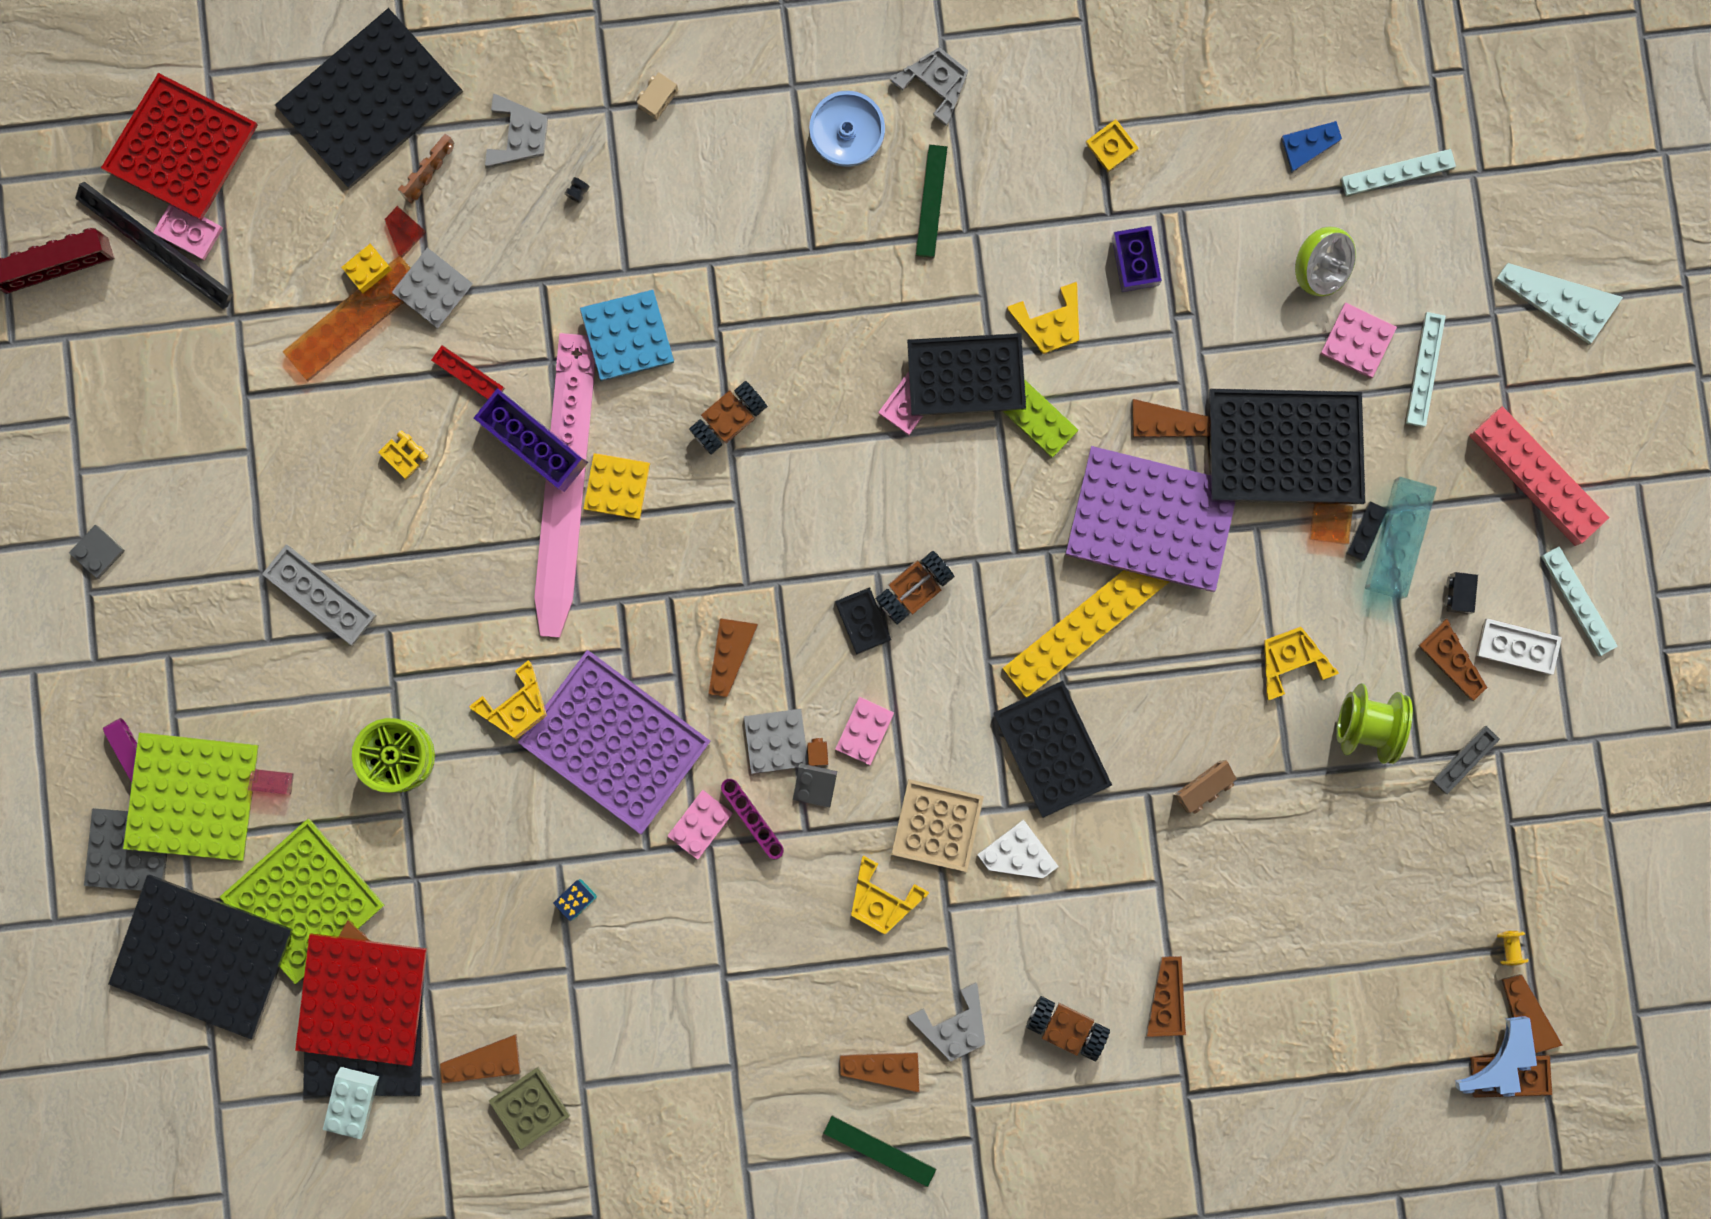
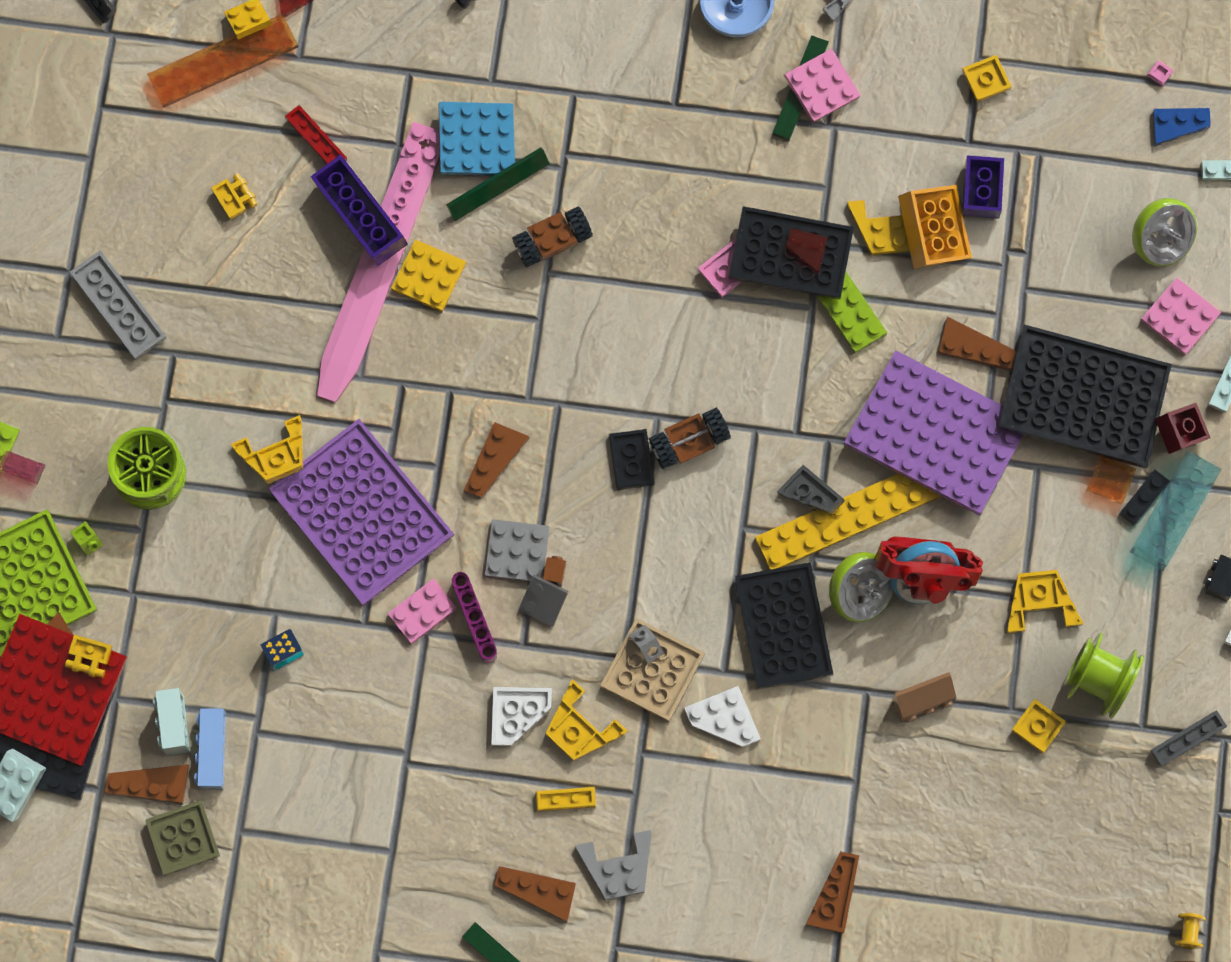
camera: 15 degrees right, 10 degrees down
(354, 837) = (86, 538): none -> lime bracket
(388, 955) = (91, 650): none -> yellow plate
(432, 287) = (304, 50): light grey plate -> none
(488, 1000) = (171, 722): none -> light aqua brick
(533, 1014) = (211, 749): none -> light blue brick
(660, 376) = (497, 184): none -> dark green tile
(818, 900) = (517, 711): none -> white plate
(864, 731) = (605, 563): bright pink plate -> none
(887, 973) = (566, 799): none -> yellow tile
(924, 802) = (645, 640): none -> light grey bracket
(952, 194) = (822, 85): none -> bright pink plate
(981, 366) = (807, 247): none -> clear red wing
(1045, 609) = (811, 491): none -> dark grey wing
(1068, 1029) = (729, 894): plate -> none
(1099, 311) = (934, 226): none -> light orange slope
(1110, 691) = (851, 581): none -> flat silver wheel
(1179, 661) = (926, 569): none -> red piece
(1279, 96) = (1160, 73): none -> bright pink tile
(1320, 784) = (1038, 726): none -> yellow plate
(1389, 455) = (1182, 428): none -> dark red brick
(1448, 654) = (1196, 633): dark orange wing -> none

